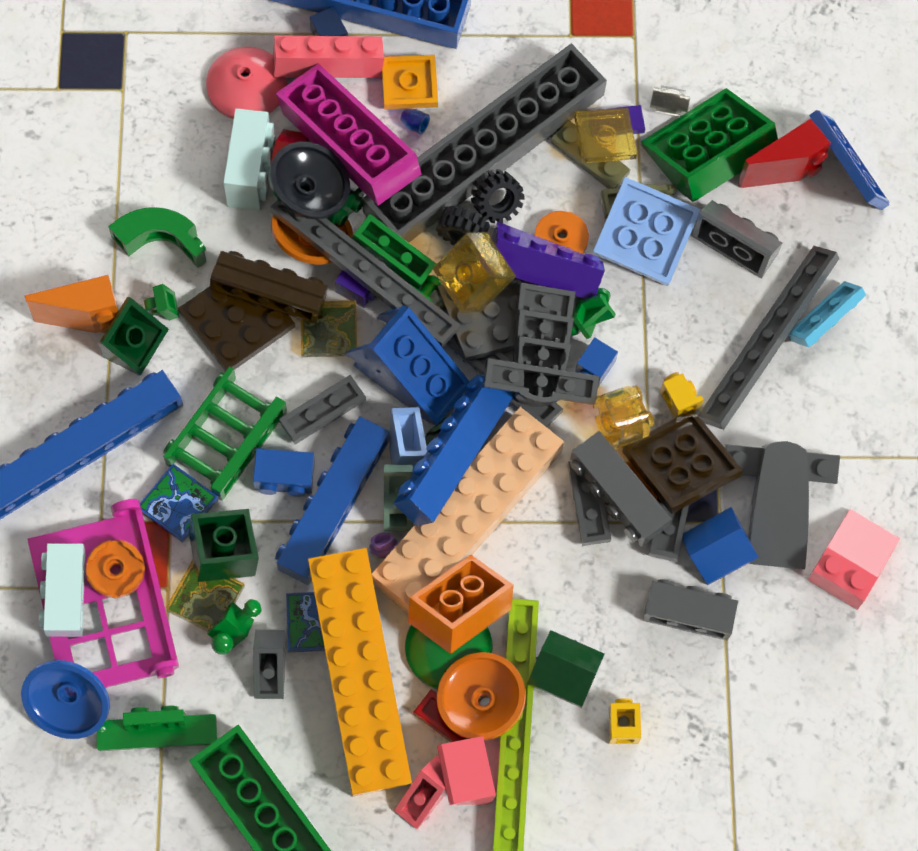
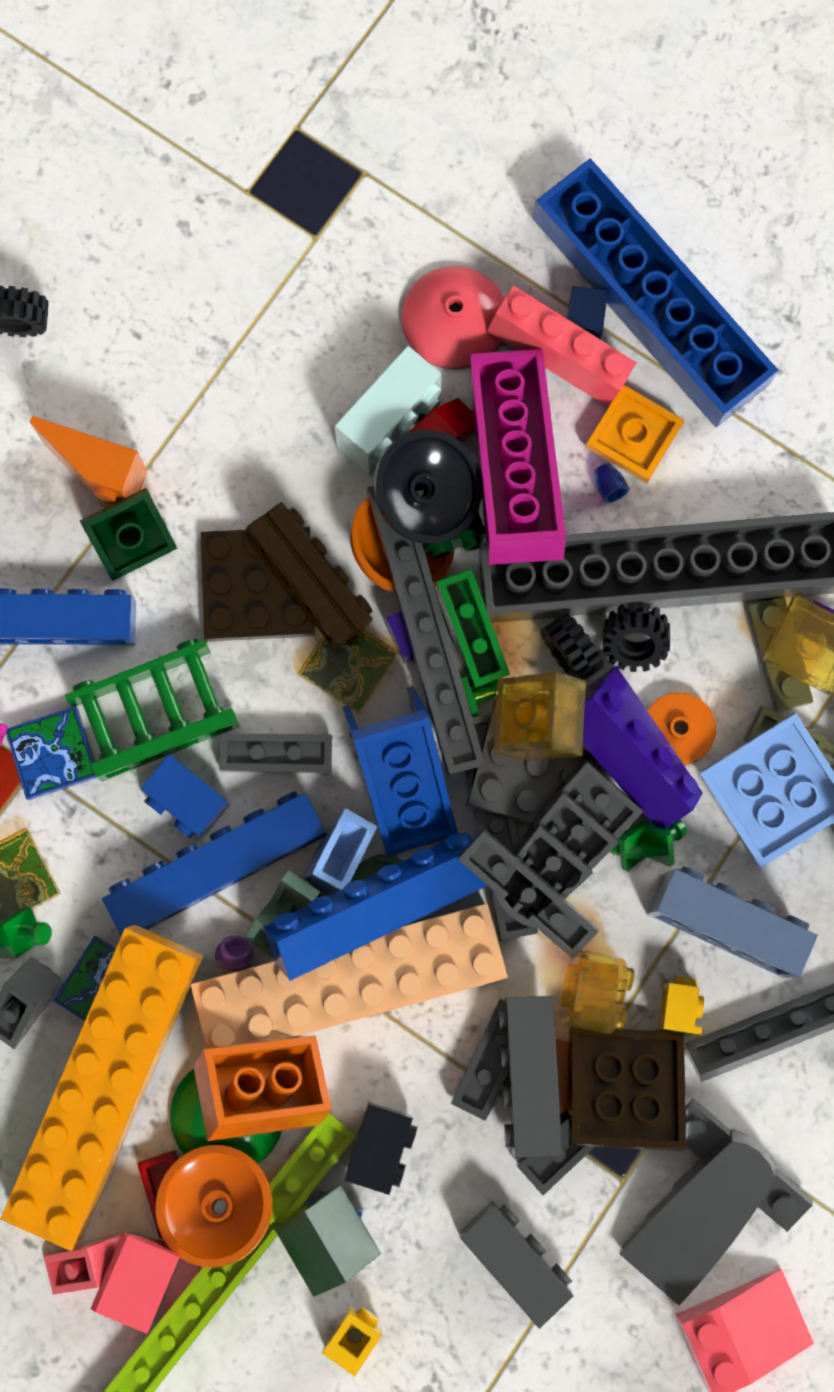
camera: 35 degrees right, 10 degrees up
(158, 224) = (231, 414): green arch -> none
(162, 303) = (188, 516): green tile -> none
(223, 545) = (58, 839): dark green brick -> none
(558, 596) = (380, 1147): none -> black brick
(597, 360) = (612, 904): blue brick -> none
(674, 323) = (733, 924): none -> sand blue brick
(719, 546) = (600, 1211): blue slope -> none

